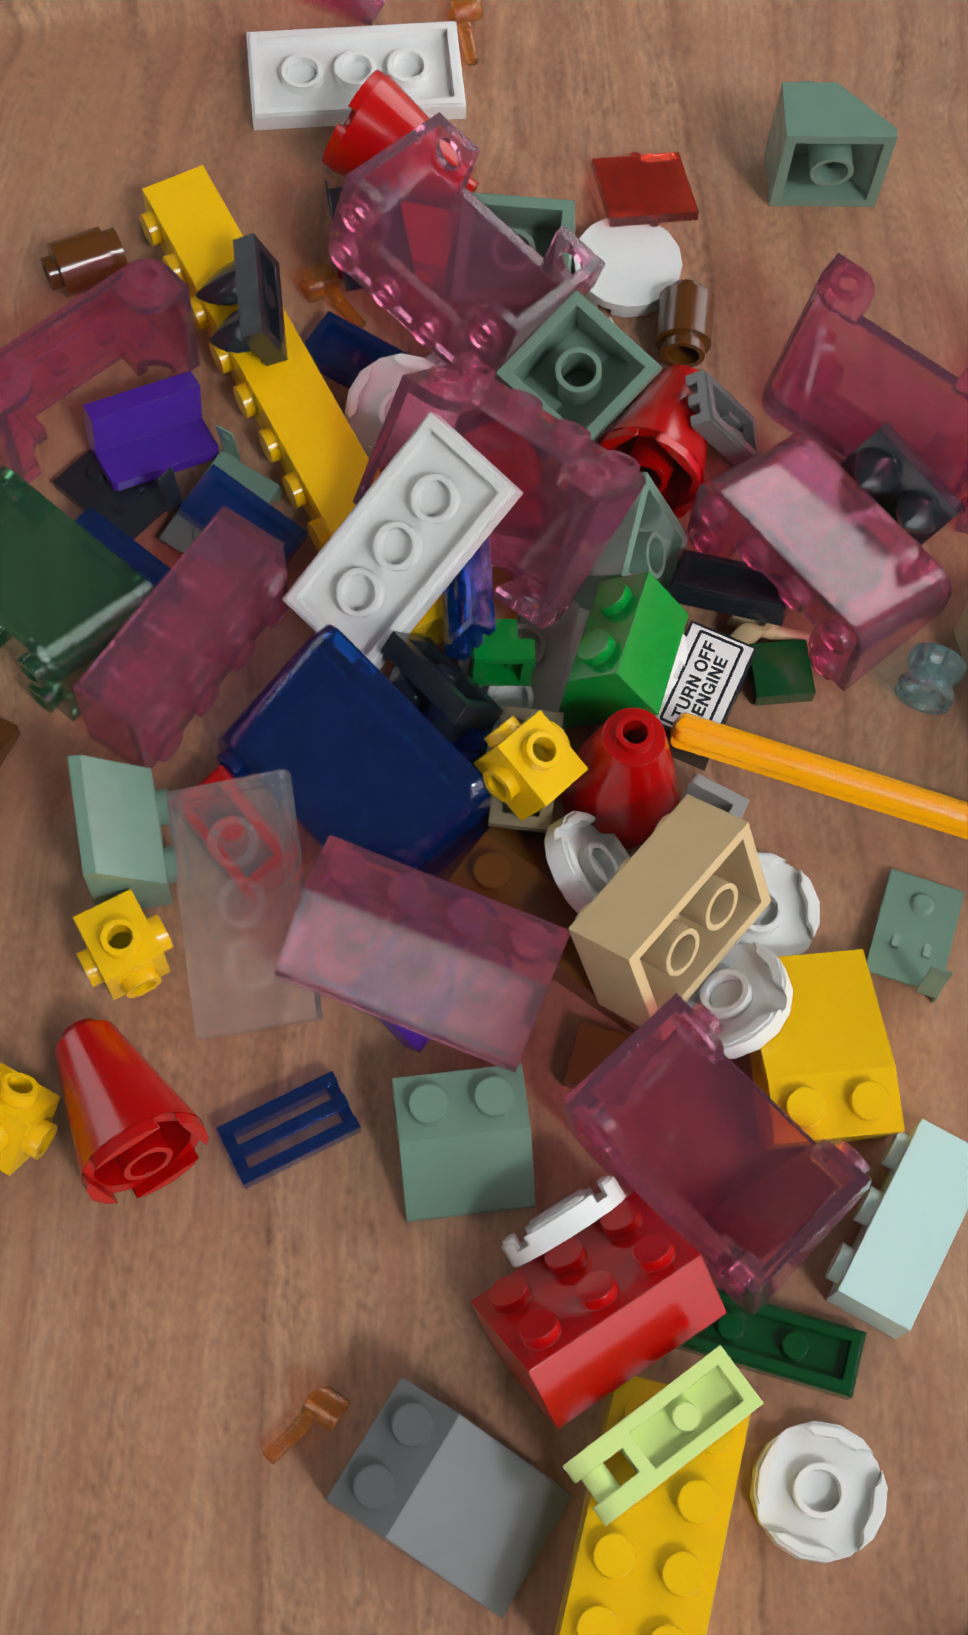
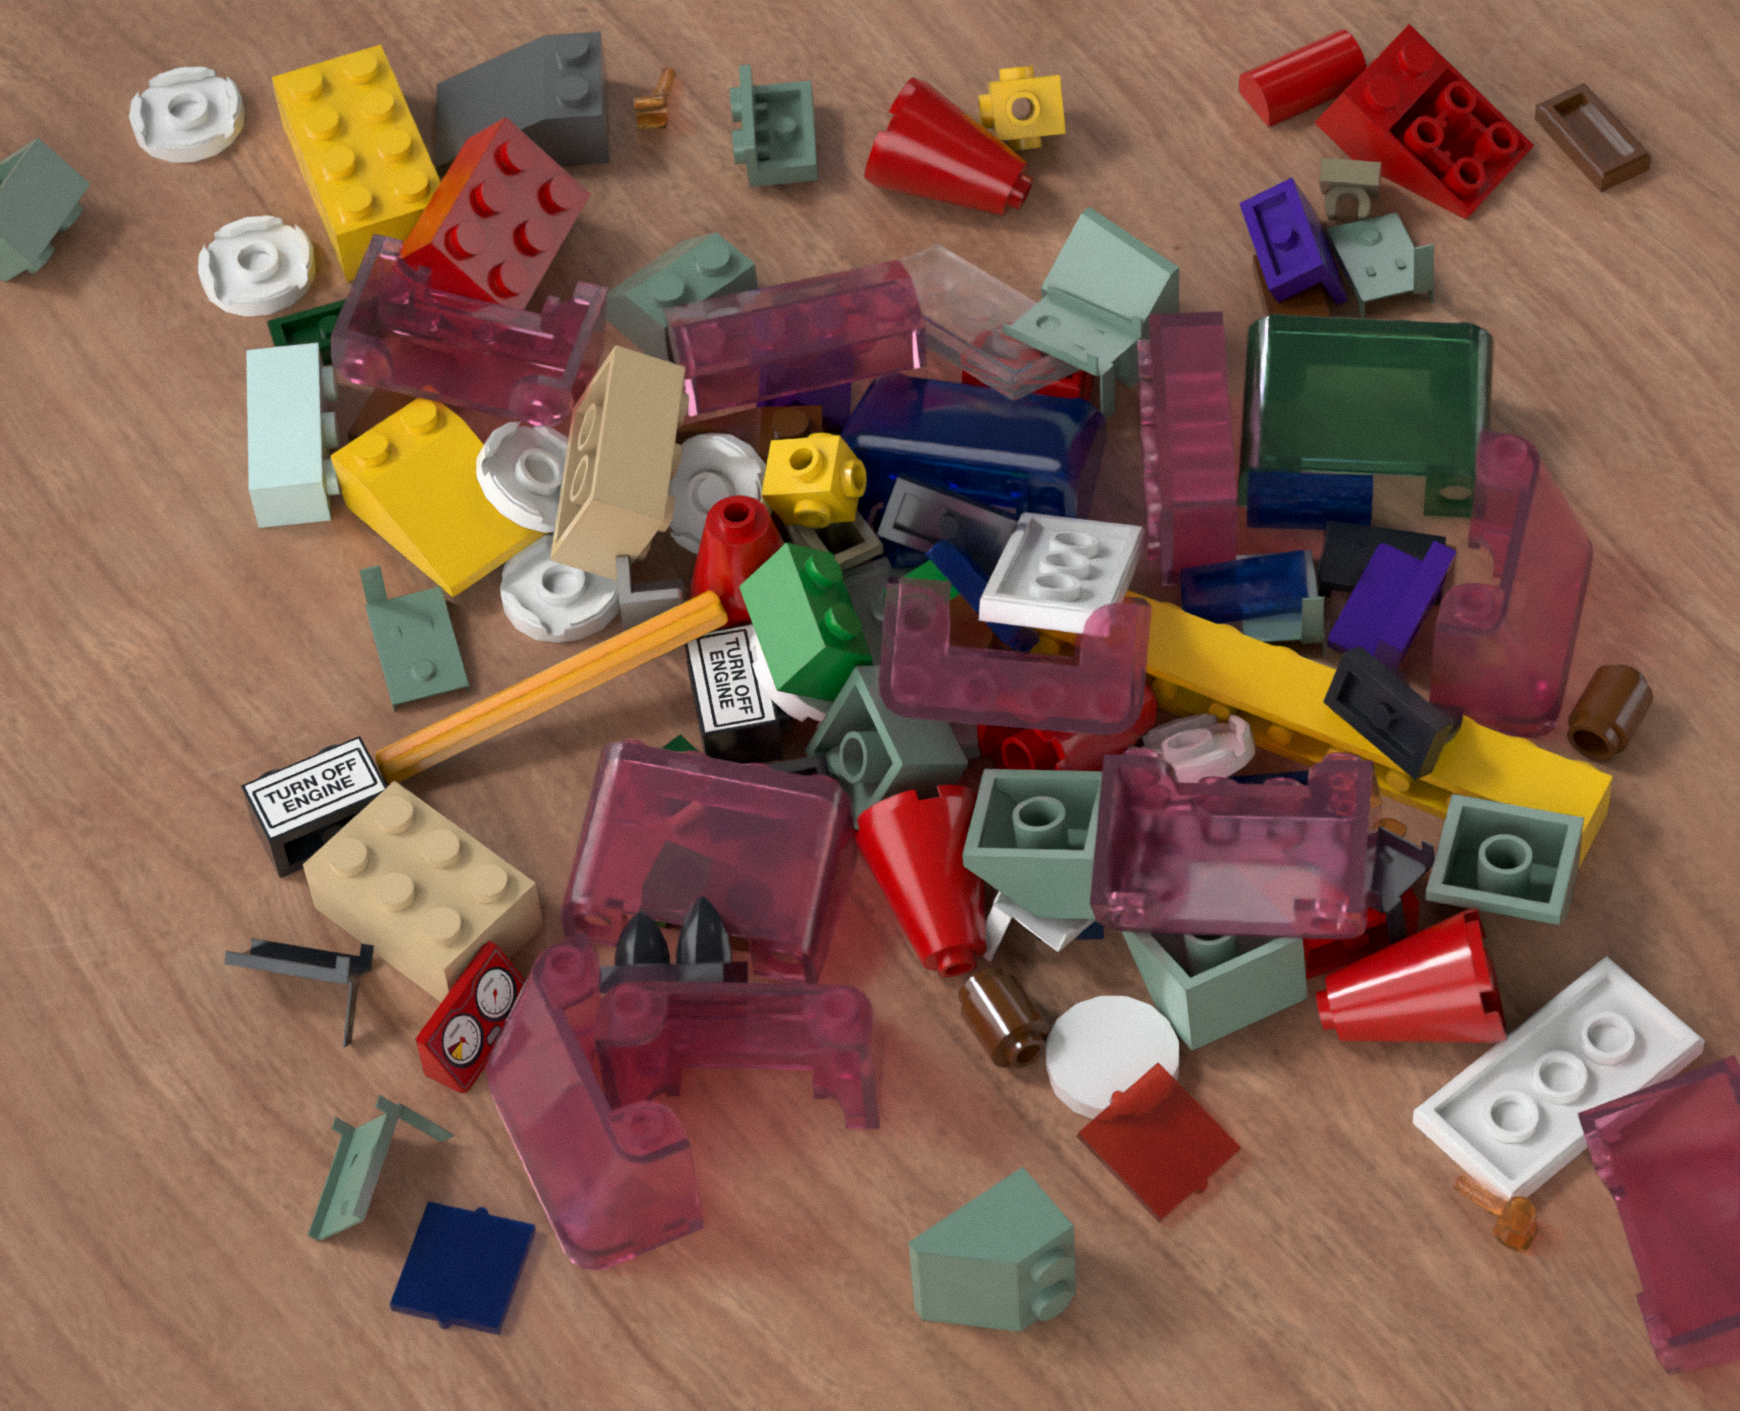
camera: 155 degrees right, 15 degrees down
(123, 946) = (1031, 241): yellow brick -> none
(188, 802) = (1079, 336): none -> sand green piece
(233, 1277) = (776, 131): none -> sand green bracket
(276, 173) = (1506, 860): none -> sand green slope
(278, 1107) = (803, 223): clear blue tile -> none
(563, 1221) = (555, 257): white tile -> none
(665, 1433) = (385, 162): yellowish green plate -> none
(721, 418) = (890, 925): dark grey tile -> none
(930, 678) = (533, 837): clear light blue wheel -> none

